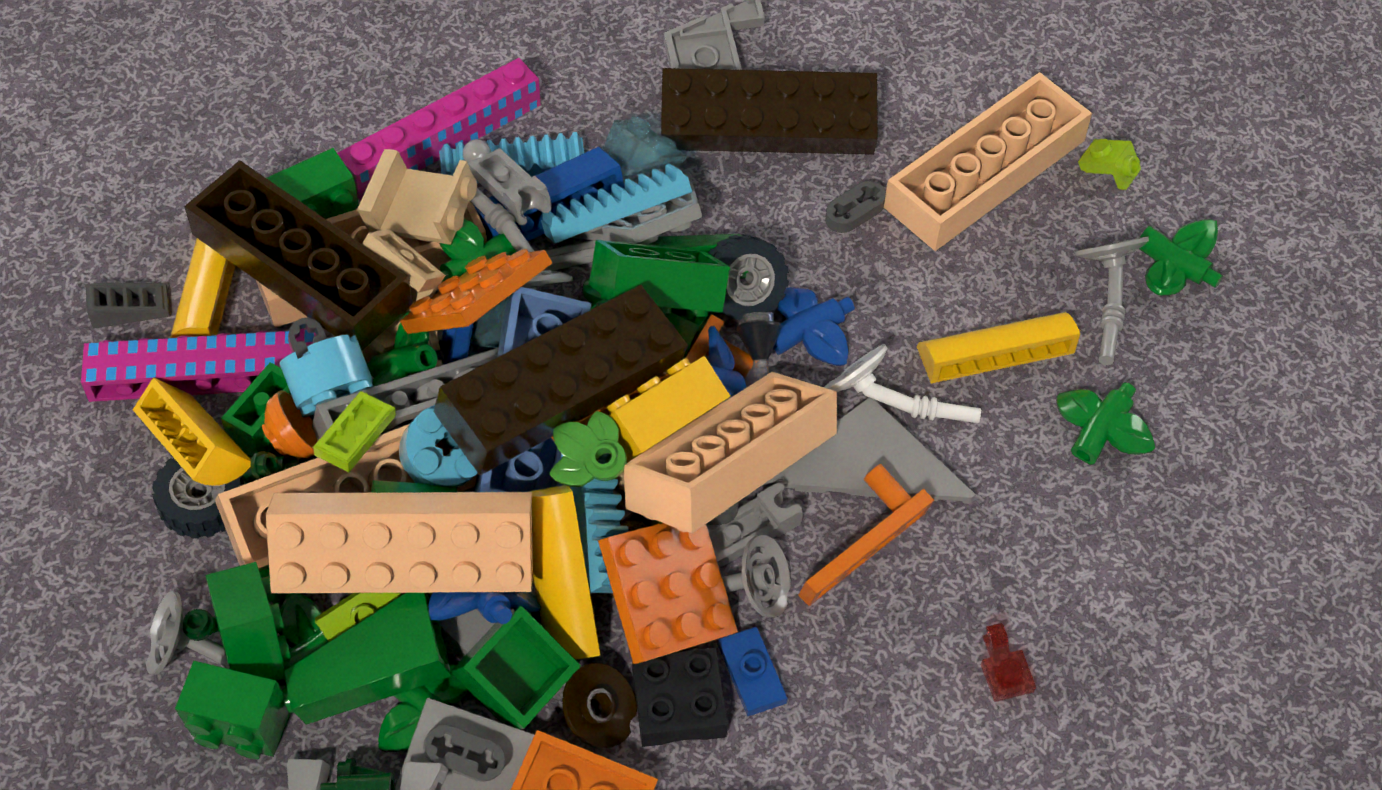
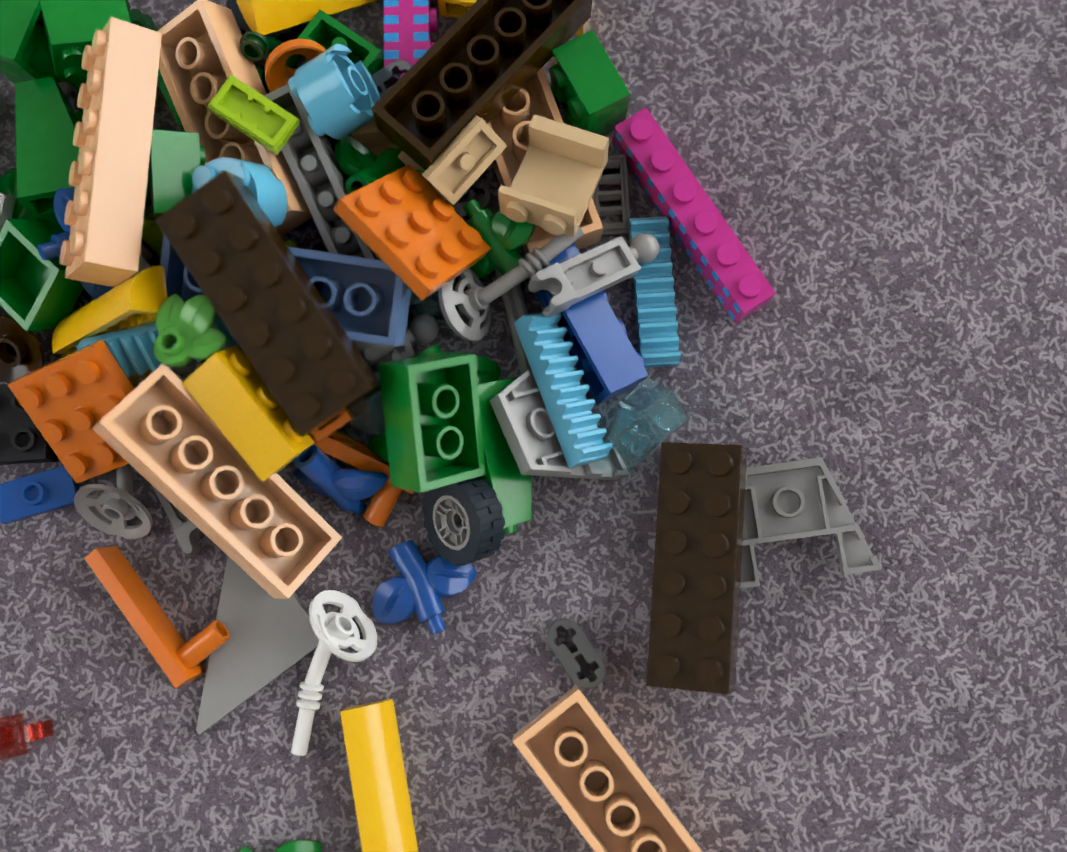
camera: 95 degrees right, 25 degrees up
(759, 337) = (391, 528): black piece -> none

